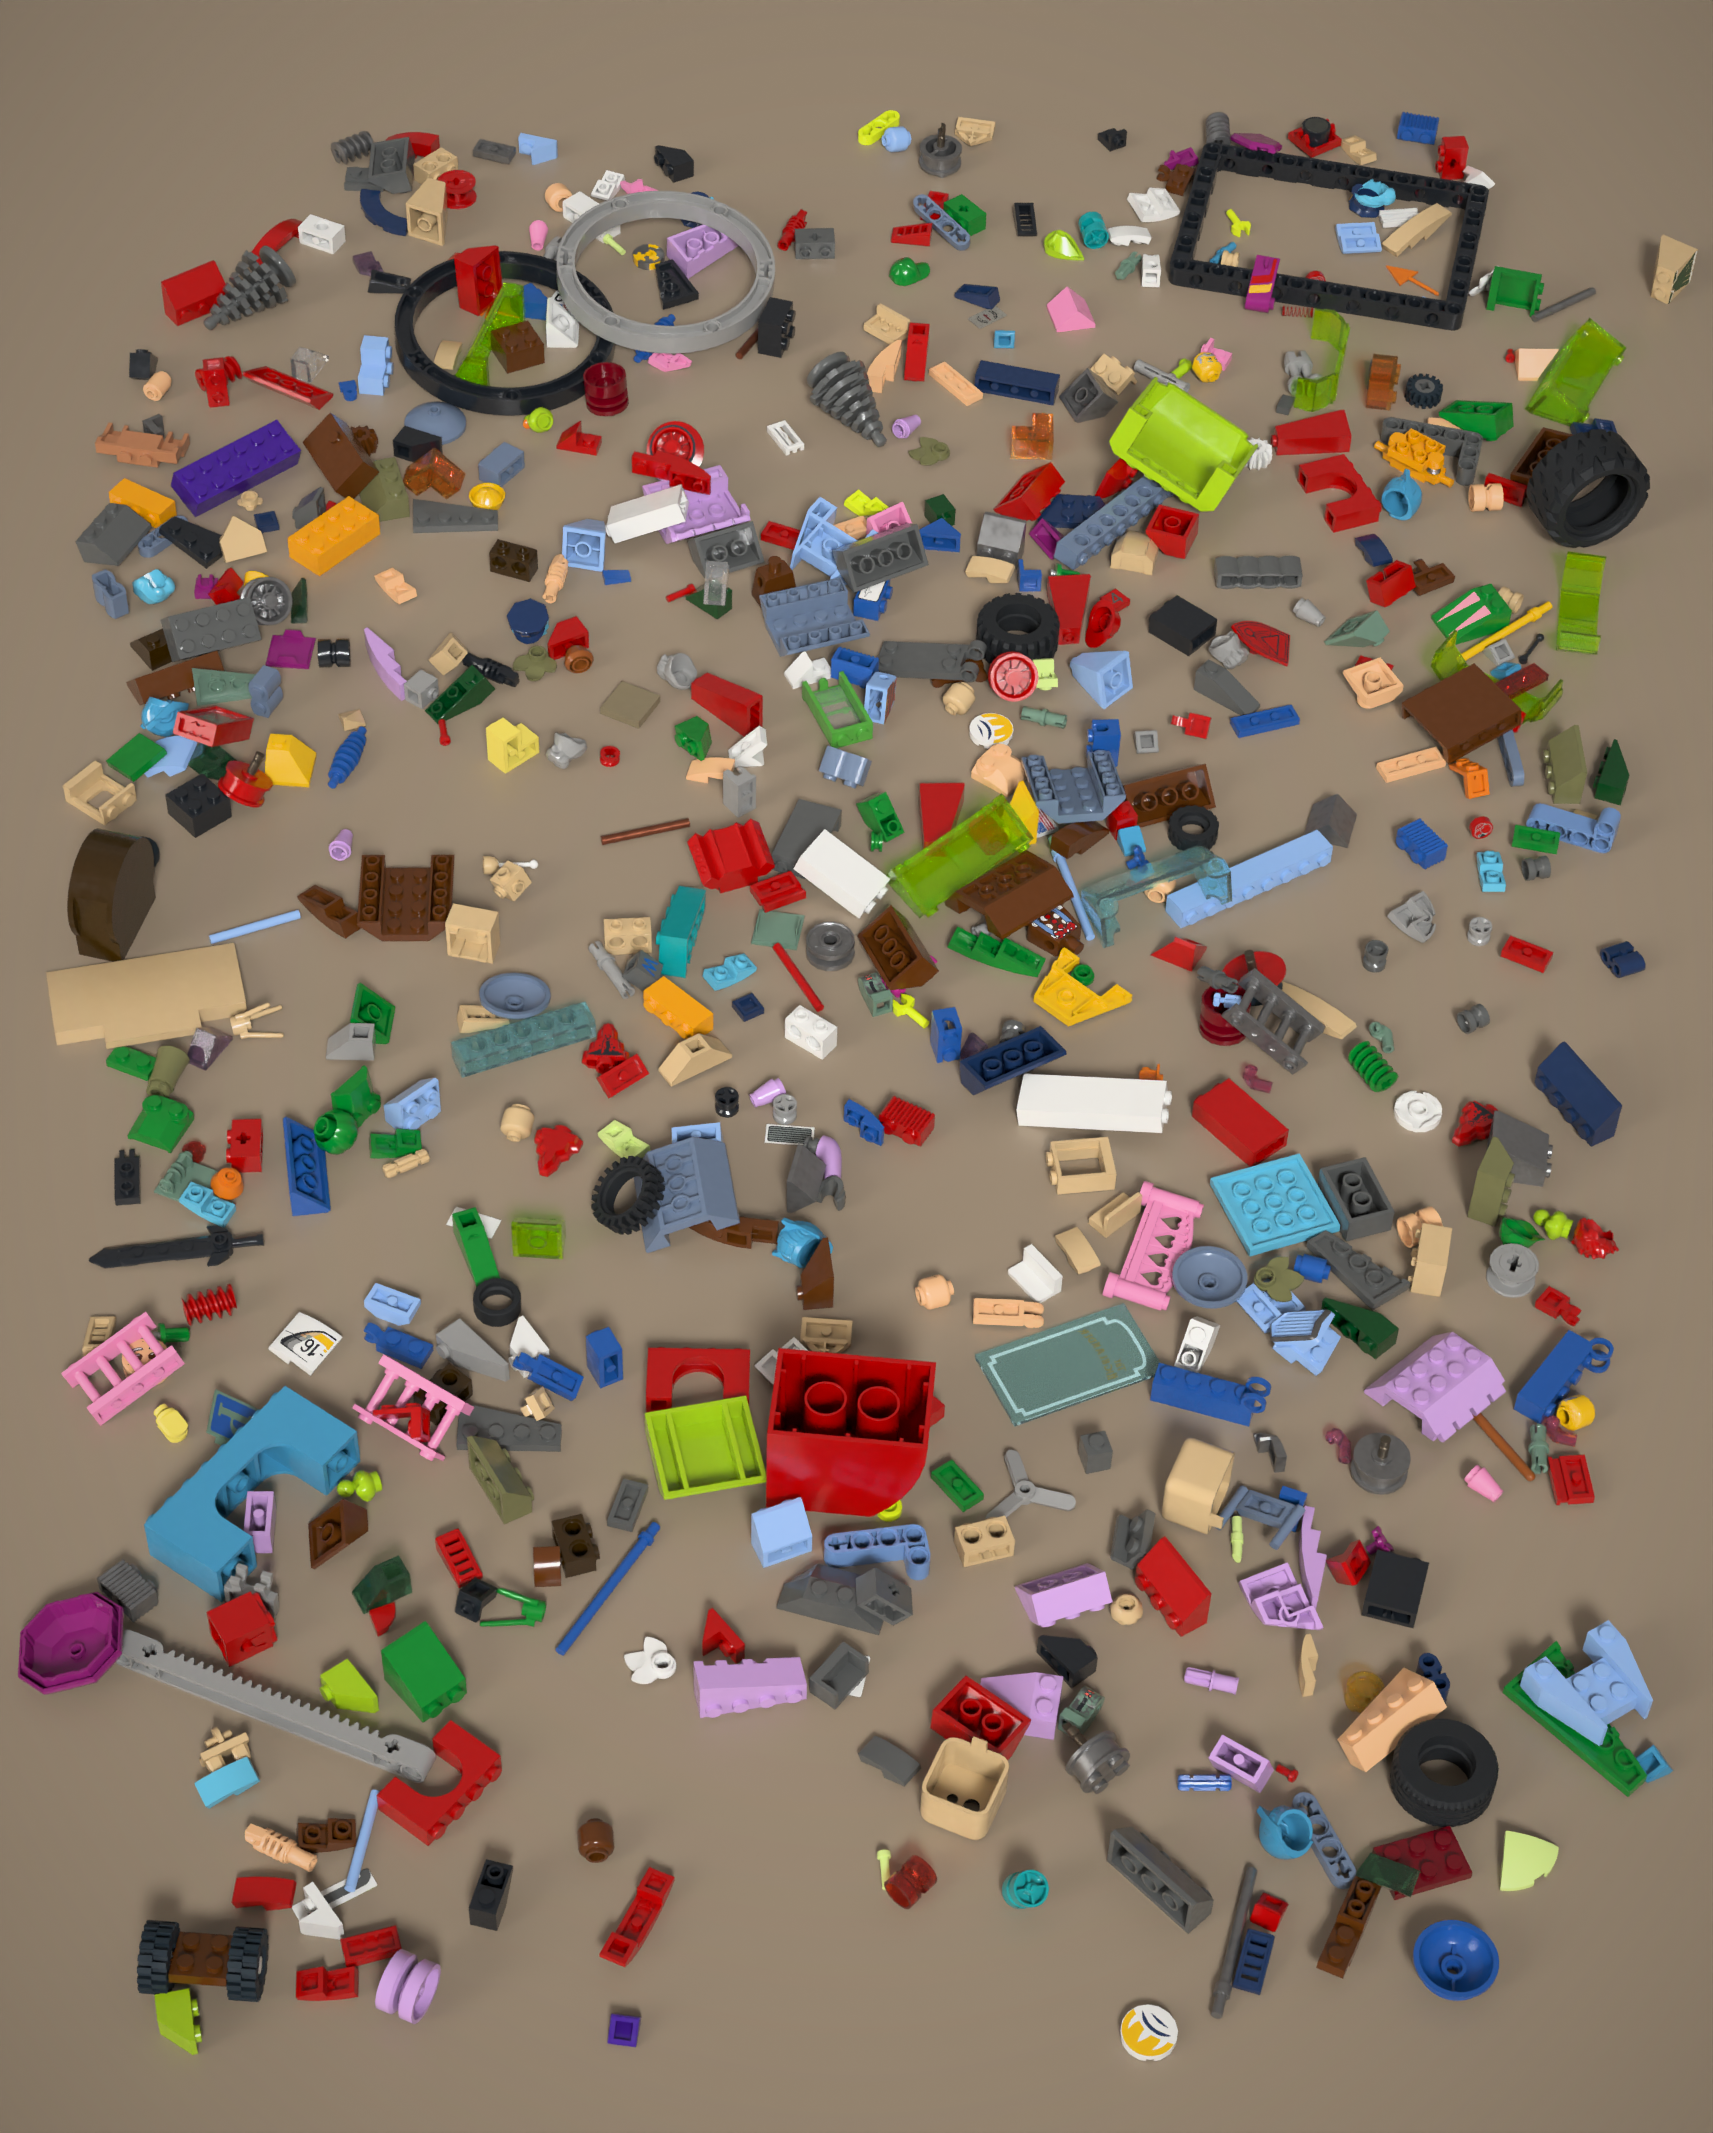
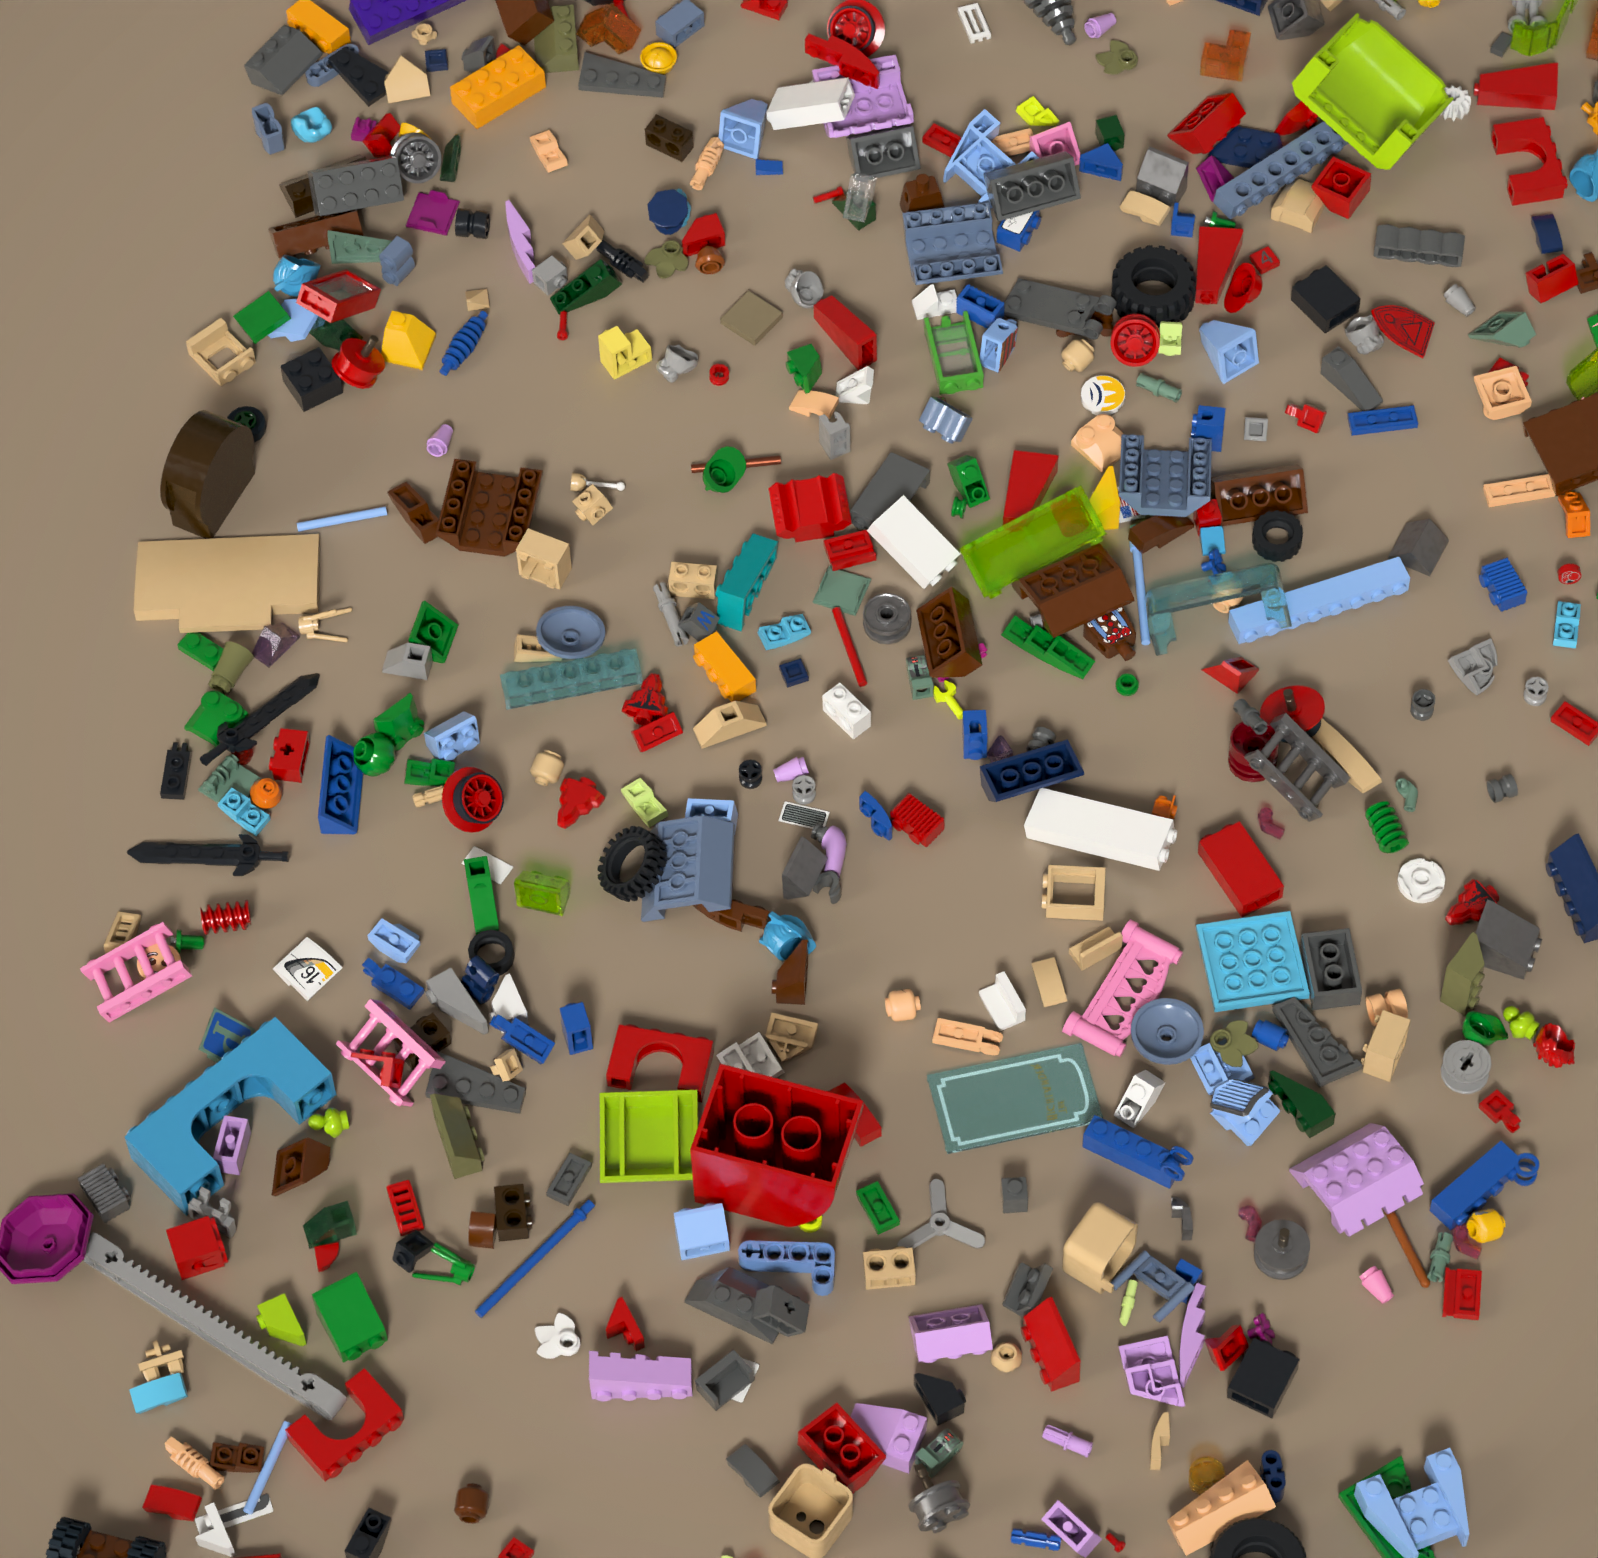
camera: 15 degrees right, 10 degrees up
(171, 1423) = (171, 1032): light yellow arm -> none
(191, 1131) = (239, 736): none -> black sword
(448, 1158) = (472, 799): none -> red piece
(492, 1325) = (479, 979): none -> dark blue piece
(635, 835) = (724, 470): none -> green piece
(1070, 999) = (1107, 709): yellow wing -> none
(1228, 1001) = (1257, 740): light blue piece -> none

